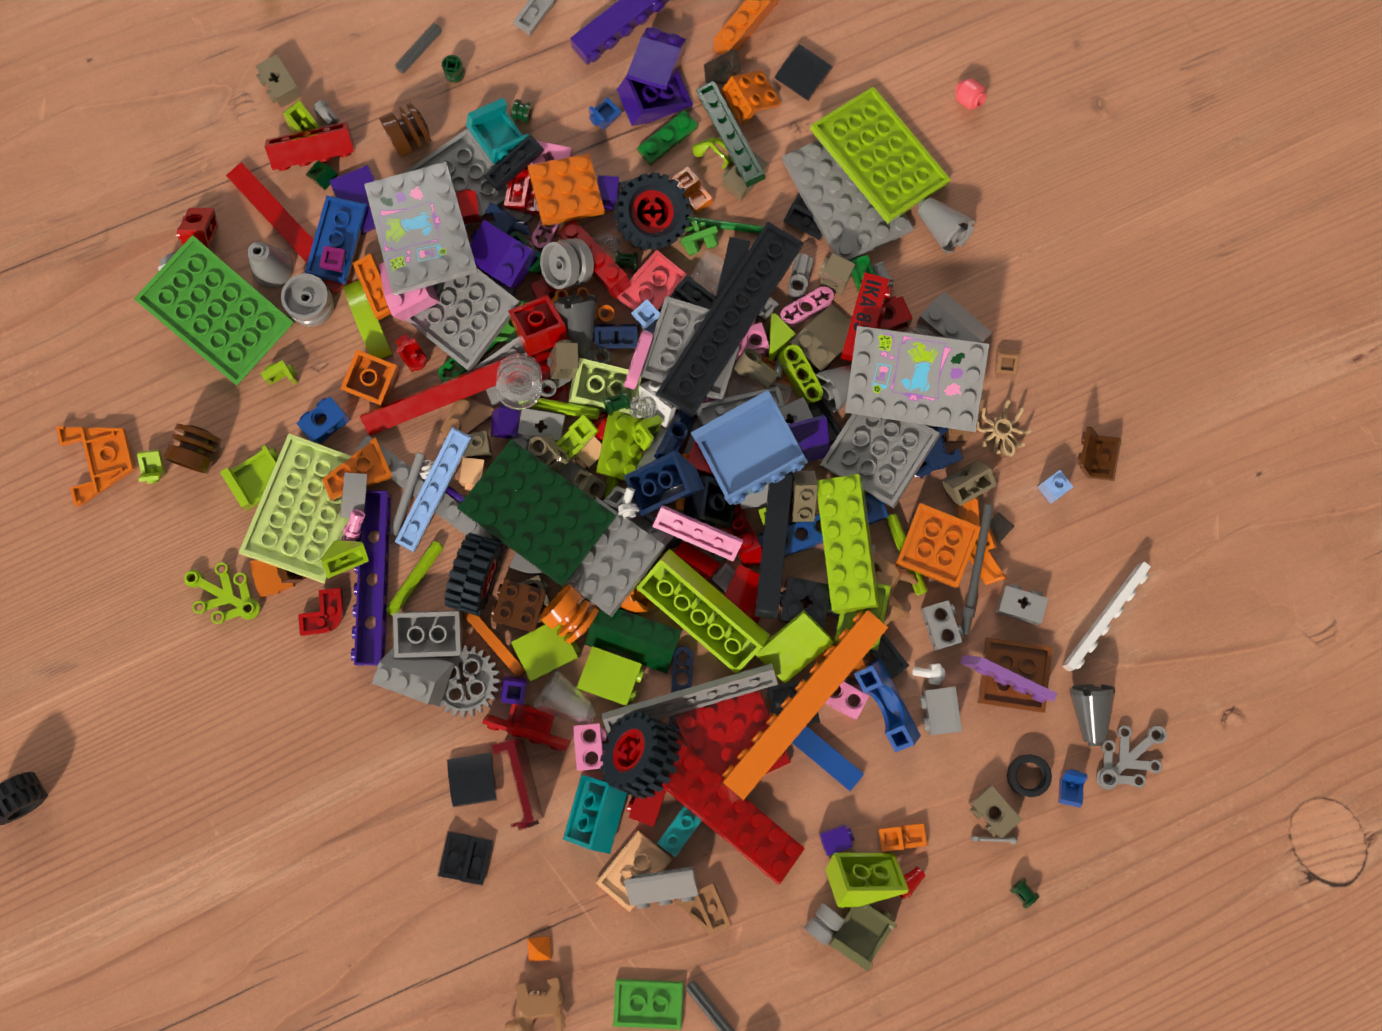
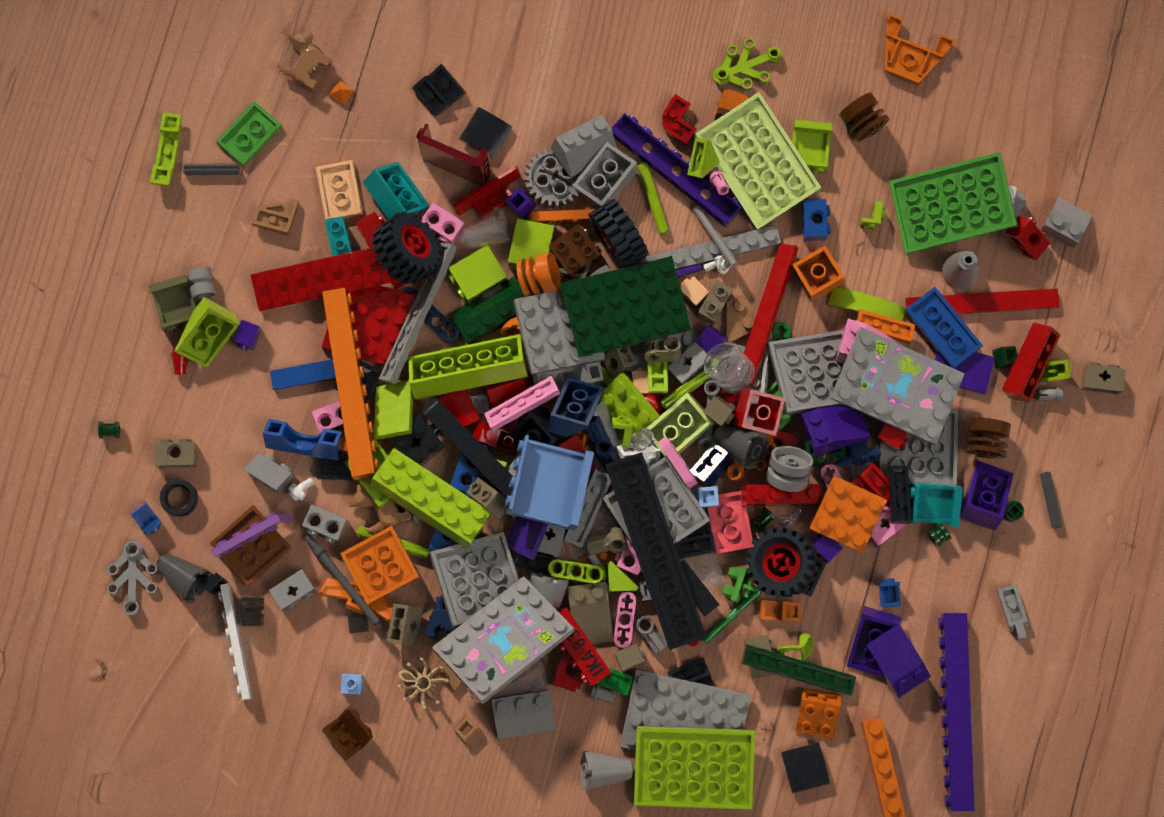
camera: 130 degrees right, 0 degrees up
(151, 466) = (875, 82): lime bracket -> none
(158, 210) = (1066, 222): none -> light grey slope
(307, 300) = (923, 272): light grey wheel -> none
(333, 259) = (927, 312): magenta plate -> none
(353, 493) = (741, 197): light grey slope -> none
(365, 461) = (755, 214): orange wing -> none
(411, 353) = (812, 314): red hips -> none
(433, 489) = (702, 255): light blue tile -> none
(455, 97) = (986, 495): none -> dark purple slope
(616, 402) = (658, 422): dark green bush -> none
(628, 509) = (578, 370): white plate -> none
(662, 887) = (312, 197): light grey slope -> none
(667, 138) = (835, 626): green plate -> none
(722, 67) = (855, 708): clear smoke slope -> none
(903, 837) = (211, 382): orange slope -> none
(1012, 839) = (148, 452): light grey hinge -> none
(1072, 623) = (251, 611): none -> clear smoke wheel
(1076, 676) = (213, 583): none -> black plate

